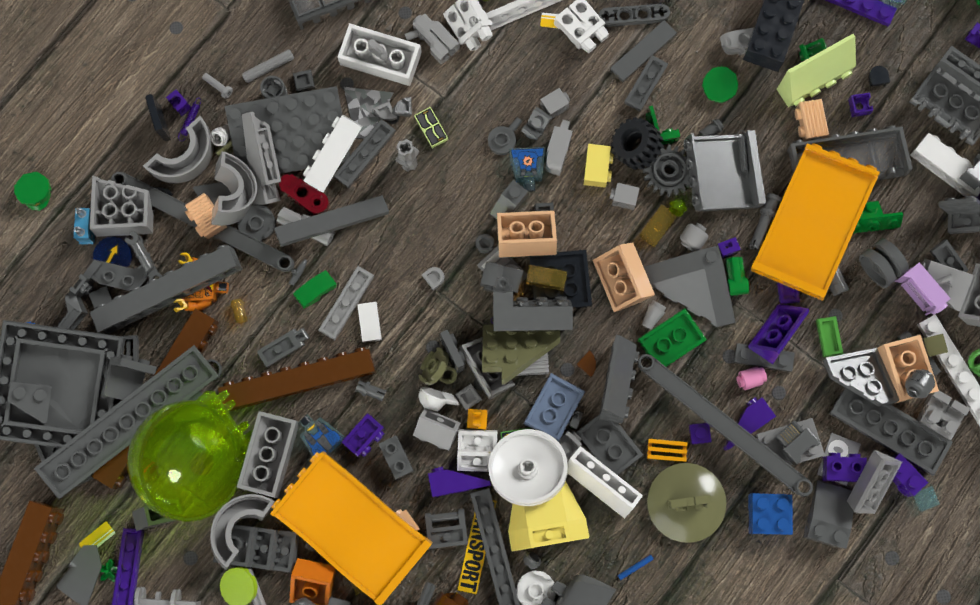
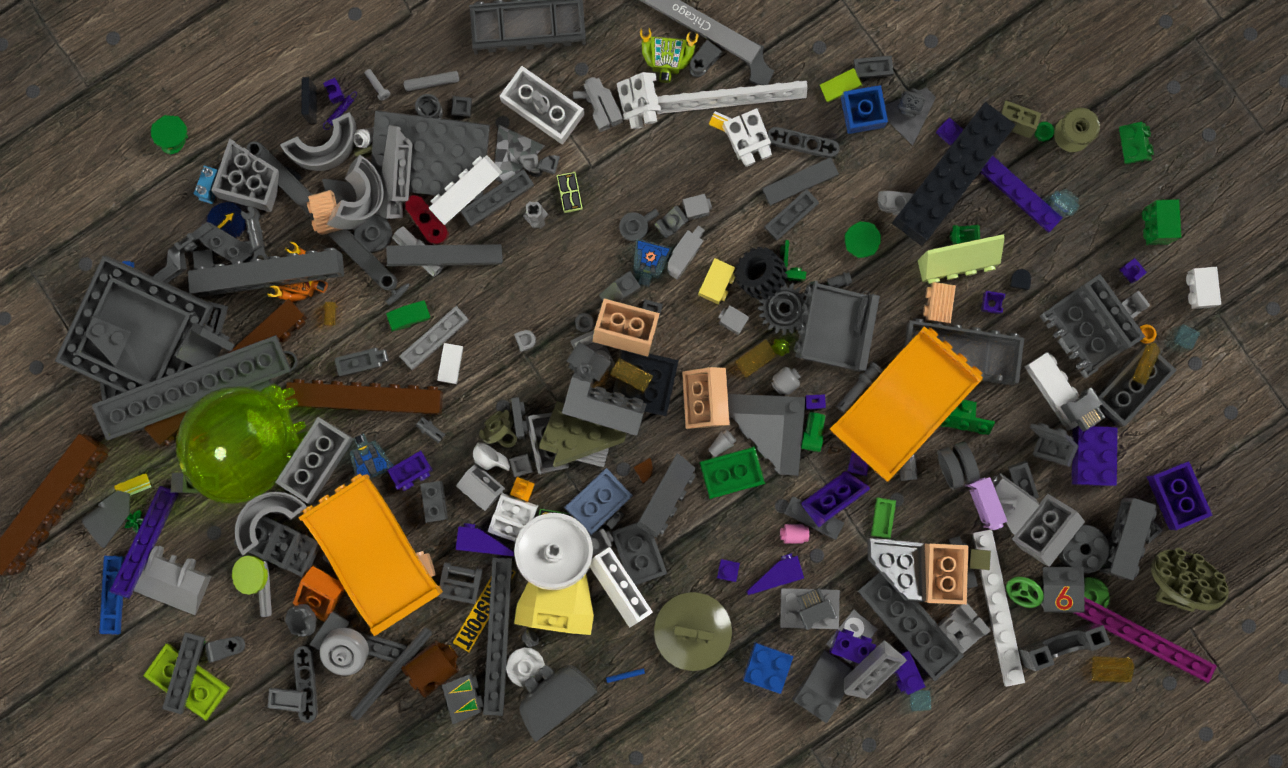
camera: 15 degrees right, 5 degrees up
(683, 451) = (706, 582): light orange tile -> none
(725, 425) = (752, 571): dark grey piece -> none
(920, 383) = (949, 592): dark grey head -> none

